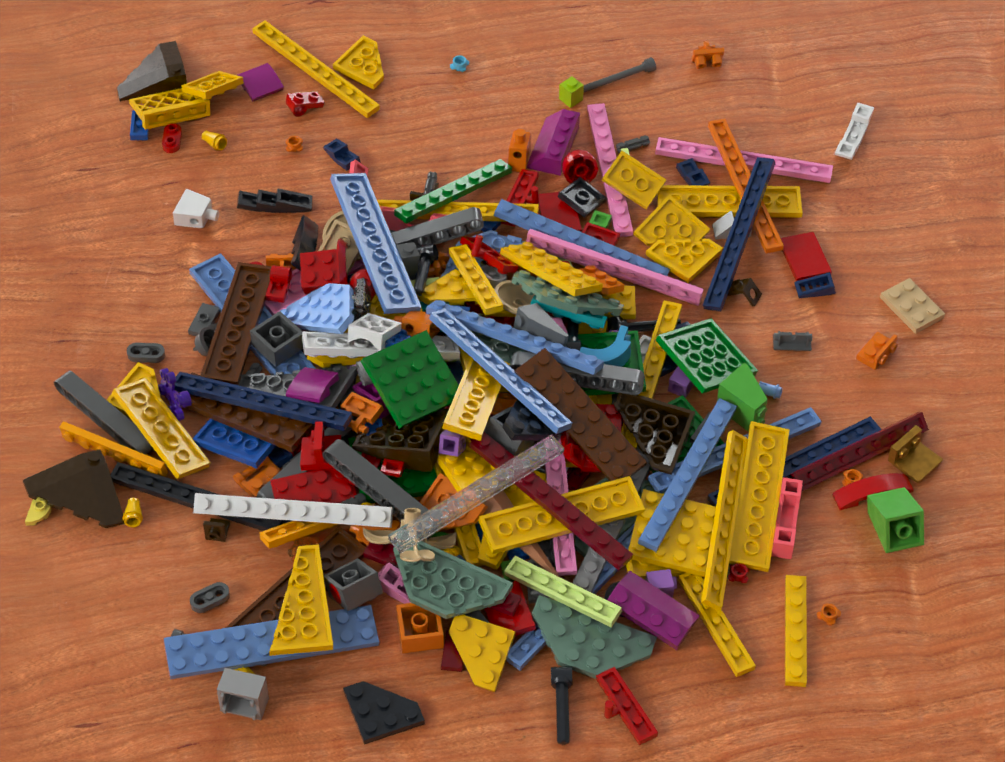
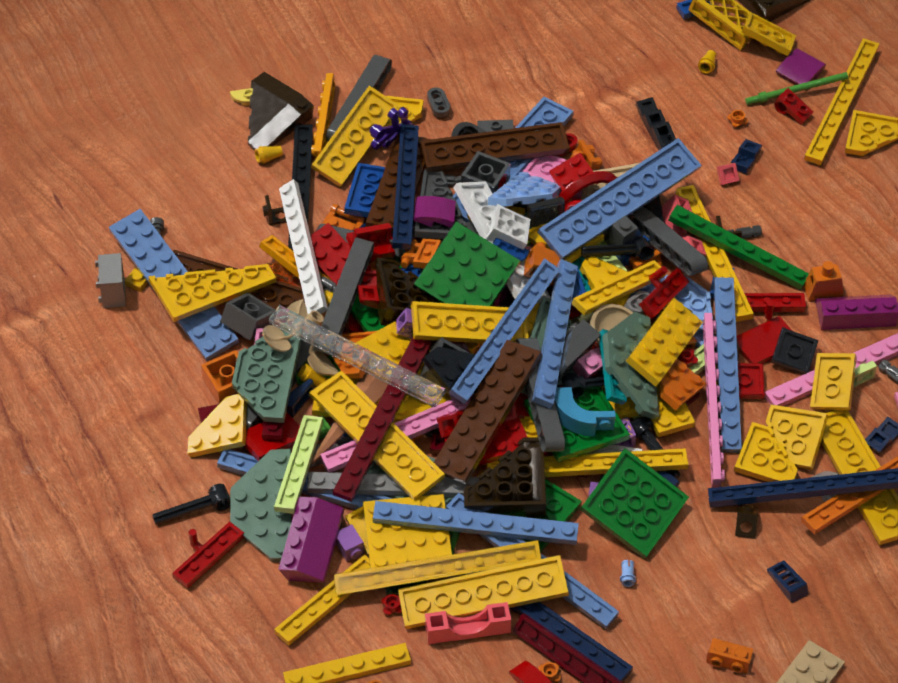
camera: 70 degrees right, 0 degrees up
(172, 138) = (695, 34): red plate -> none
(194, 210) = (614, 76): white torso -> none
(209, 597) = (207, 234): dark grey plate -> none
(279, 116) = (764, 97): none -> bright green bar
(279, 283) = (550, 159): red plate -> none
(304, 240) = (615, 160): black slope -> none
(381, 712) = (138, 382): black plate -> none
(579, 164) = (830, 333): red cylinder -> none
(601, 219) = (773, 375): bright green plate -> none
(744, 392) = (597, 548): bright green slope -> none
(796, 342) = (701, 577): dark grey hinge -> none
(805, 256) = (825, 561): red tile -> none

